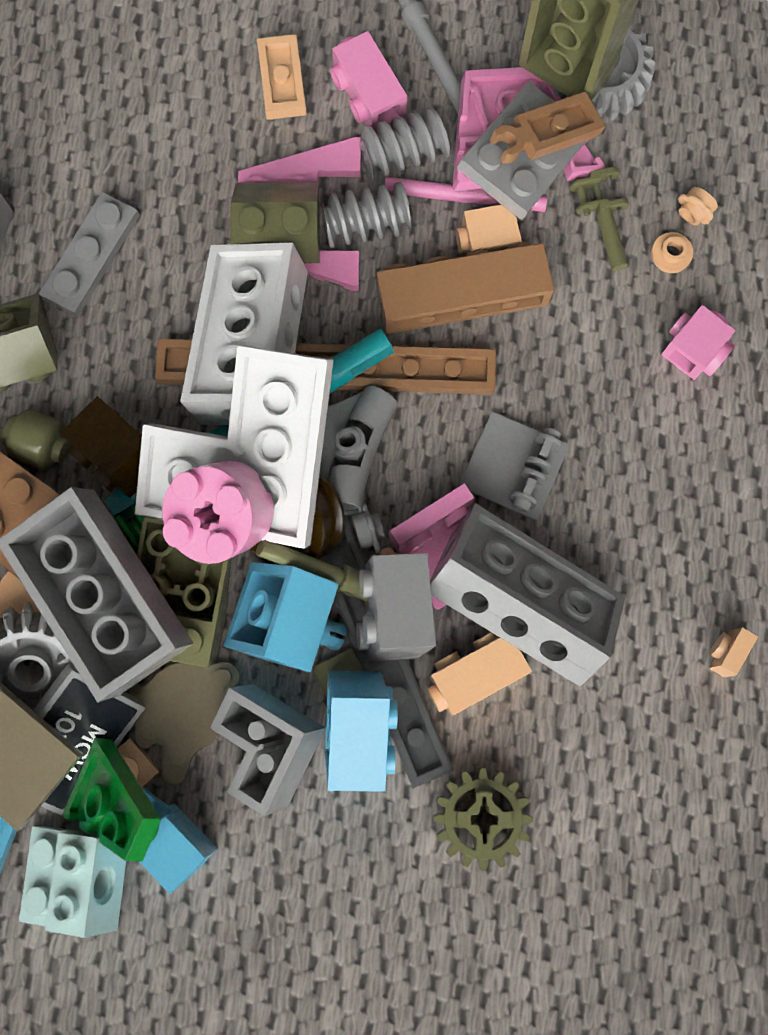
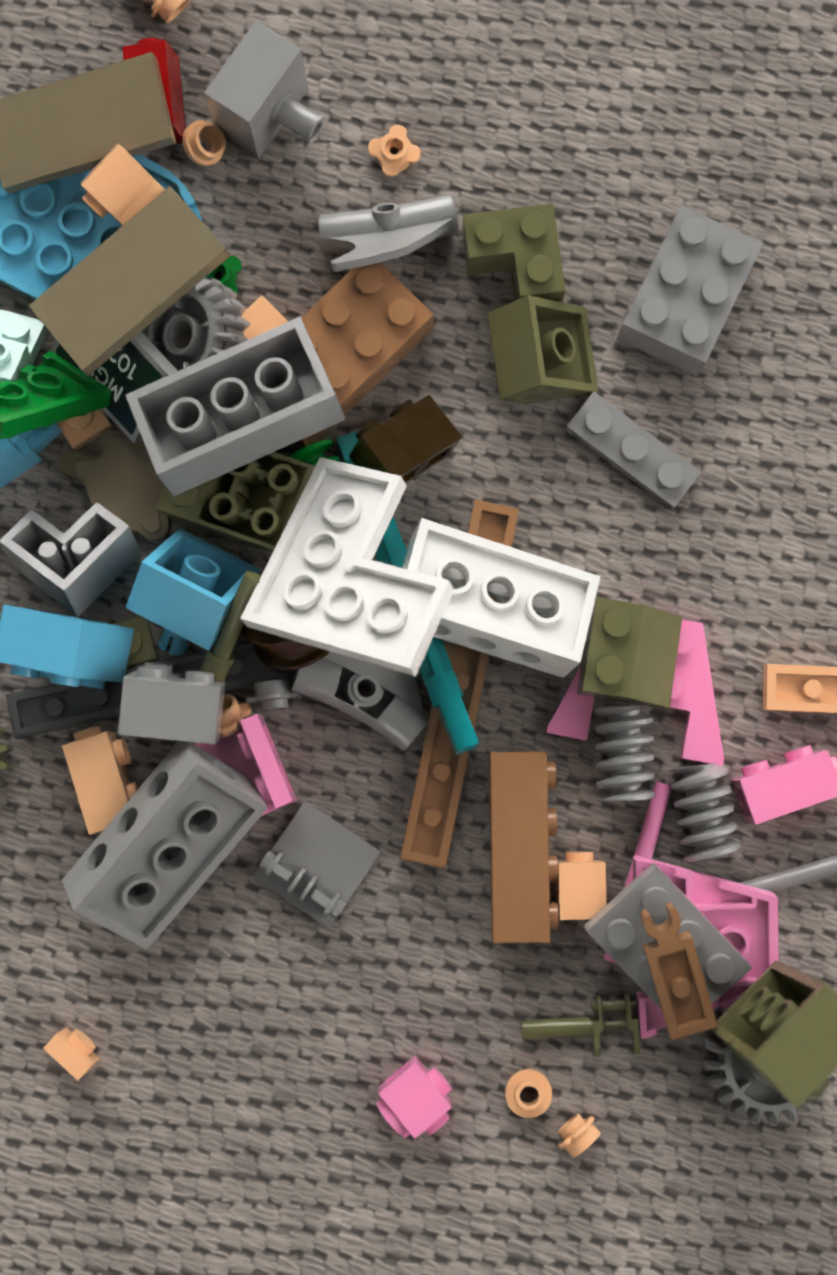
camera: 105 degrees right, 5 degrees up
(35, 440) = (432, 369): olive head -> none
(216, 511) = (288, 536): bright pink brick -> none

